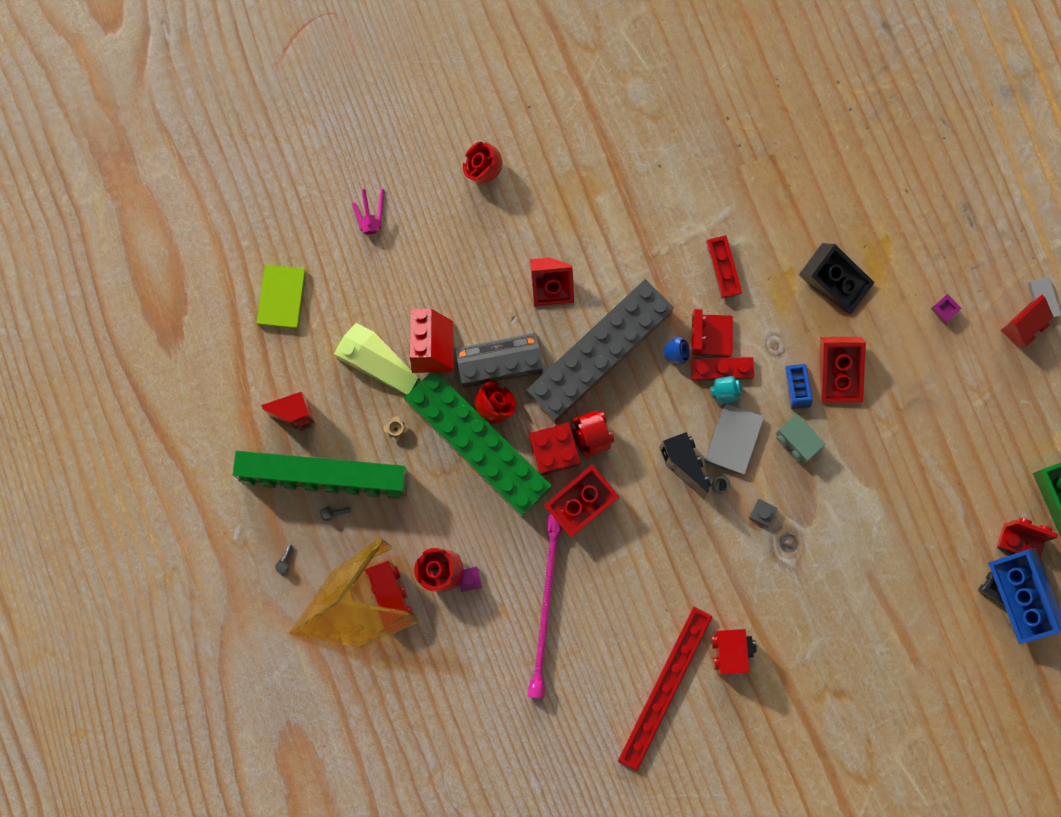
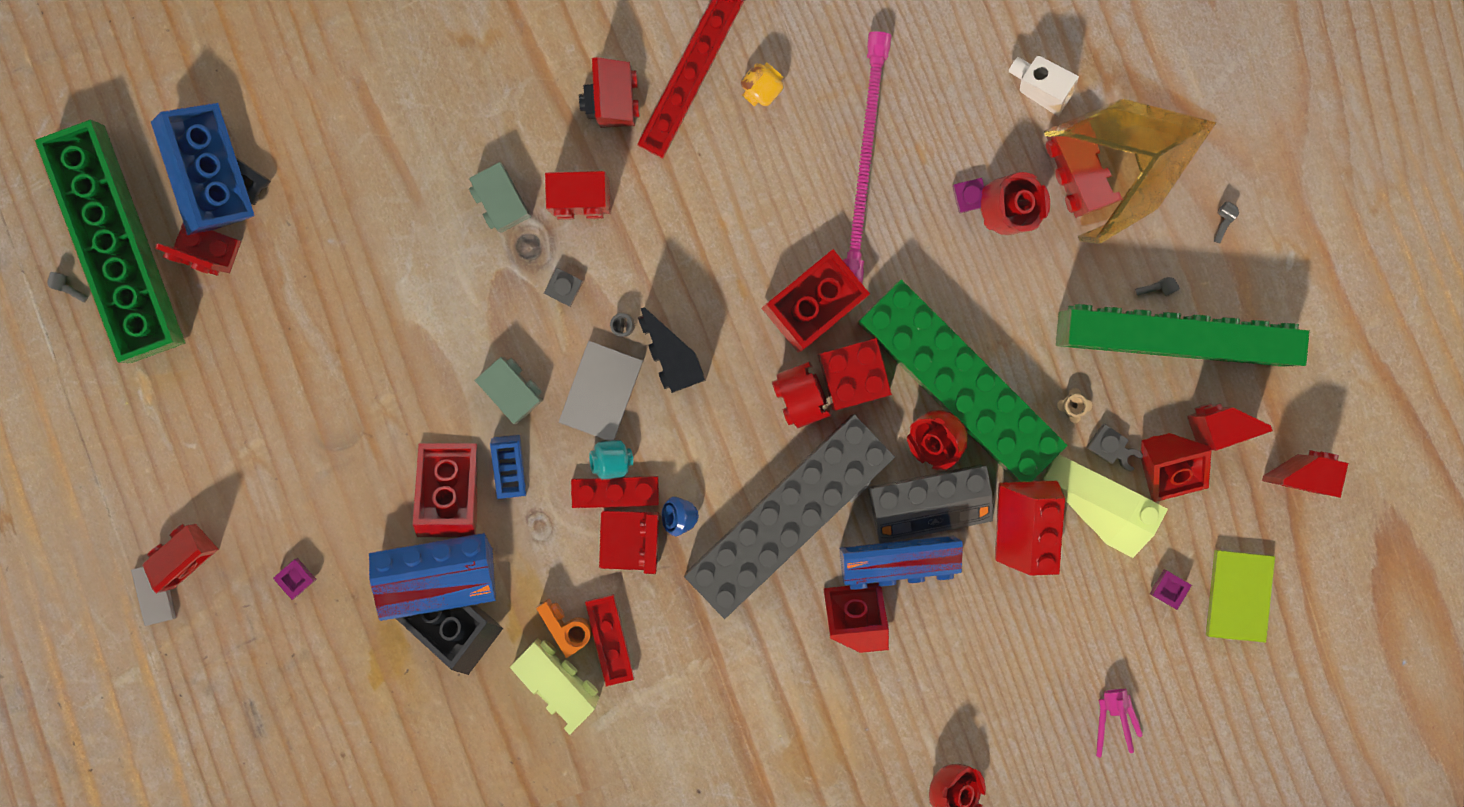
camera: 175 degrees right, 10 degrees up
(232, 378) = (1312, 473): none -> red slope
(326, 385) = (1175, 466): none -> red slope
(330, 300) = (1170, 589): none -> magenta plate
(369, 400) = (1111, 446): none -> dark grey plate
(408, 654) = (1053, 89): none -> white torso
(521, 319) = (900, 561): none -> blue slope
(622, 659) = (762, 84): none -> yellow head
(755, 576) = (577, 194): none -> red brick
(760, 236) = (556, 683): none -> yellowish green wedge
(764, 281) = (552, 616): none -> orange plate
(812, 576) = (499, 198): none -> sand green brick
(849, 308) = (432, 576): none -> blue slope

